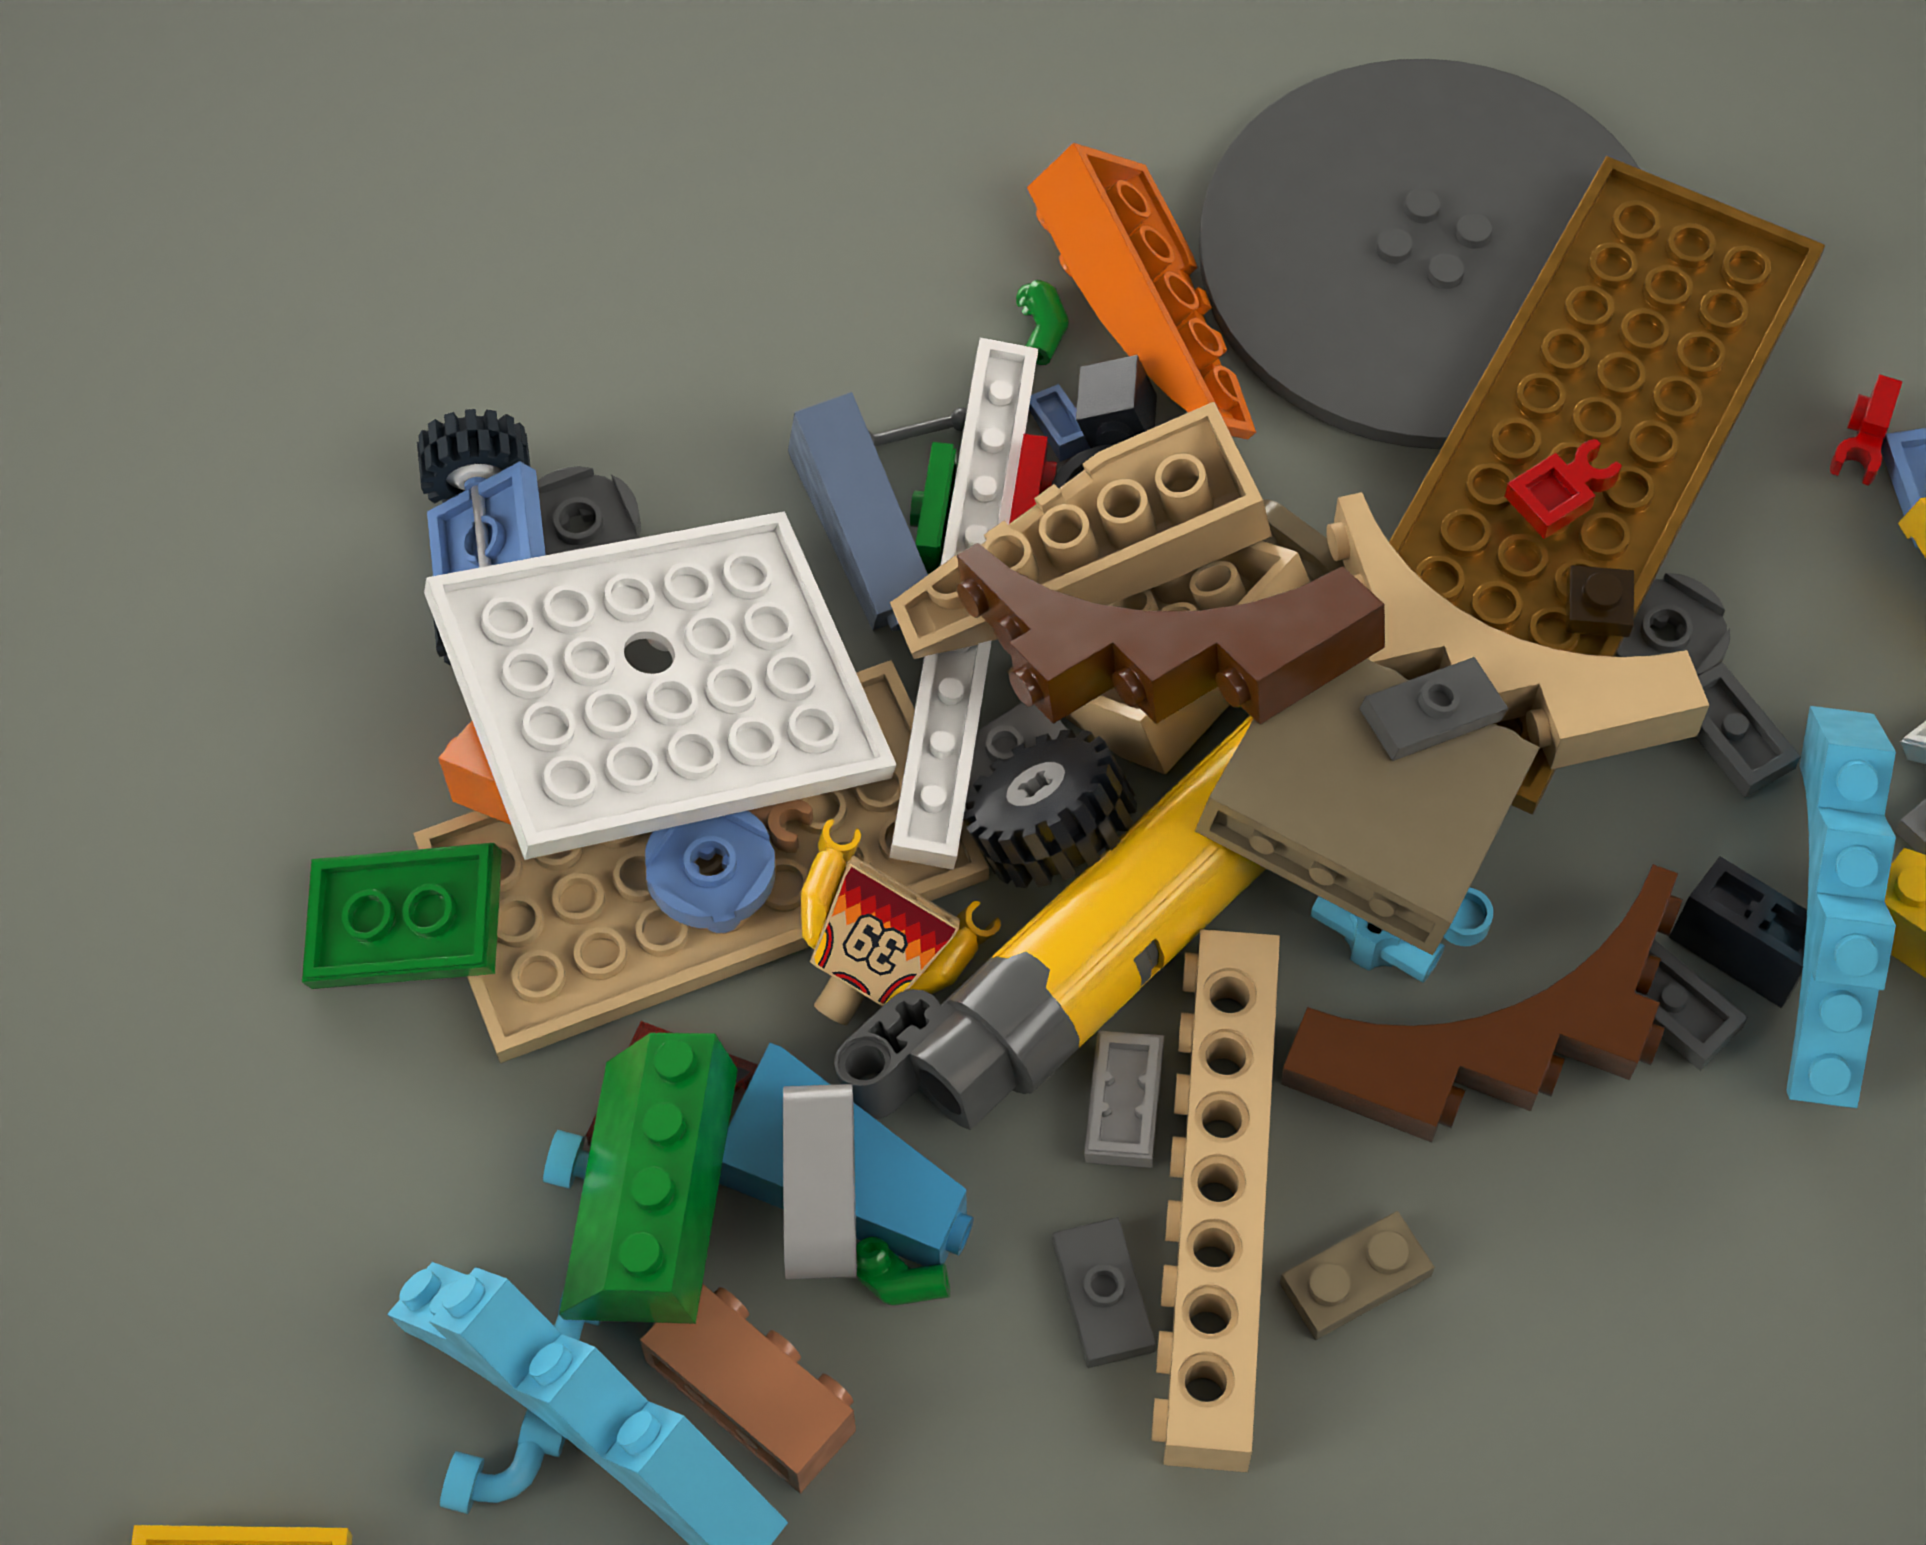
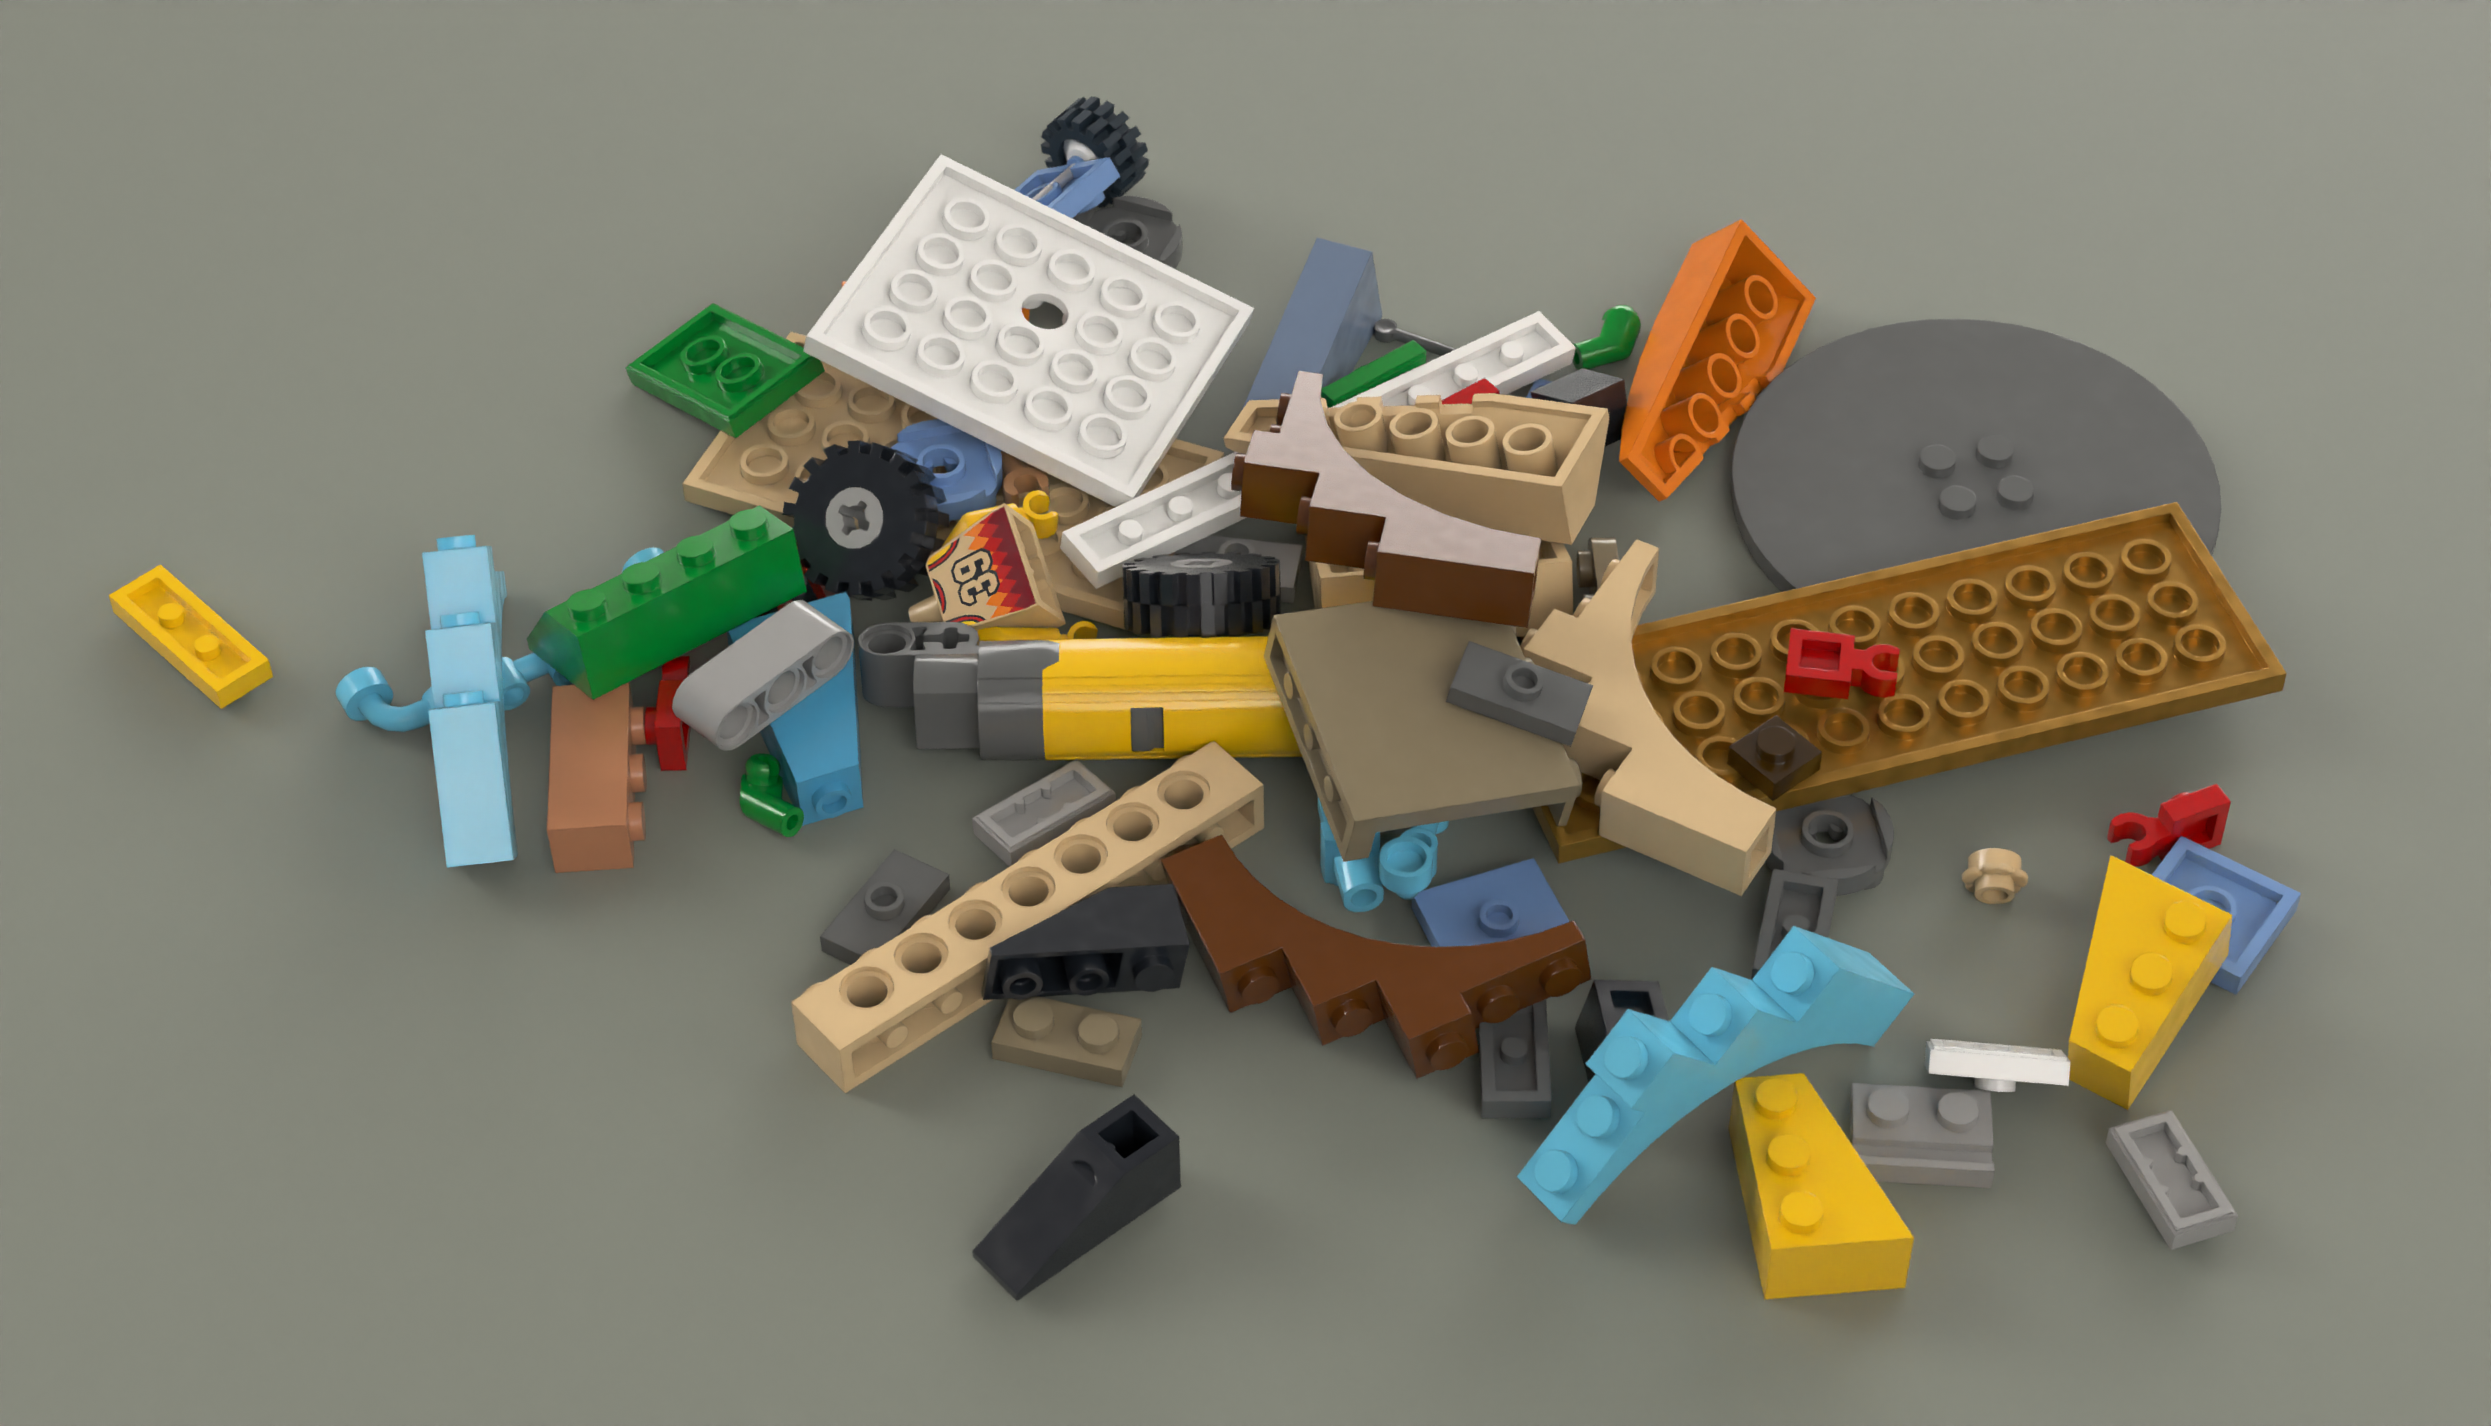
camera: 45 degrees right, 15 degrees down
(709, 932) = (894, 529): none -> black wheel
(747, 1274) = (662, 725): none -> red plate
(1315, 1167) = (1101, 945): none -> black slope
(1544, 902) = (1489, 907): none -> medium blue plate
(1546, 1406) = (1083, 1197): none -> black slope
(1802, 568) = (1994, 875): none -> tan plate

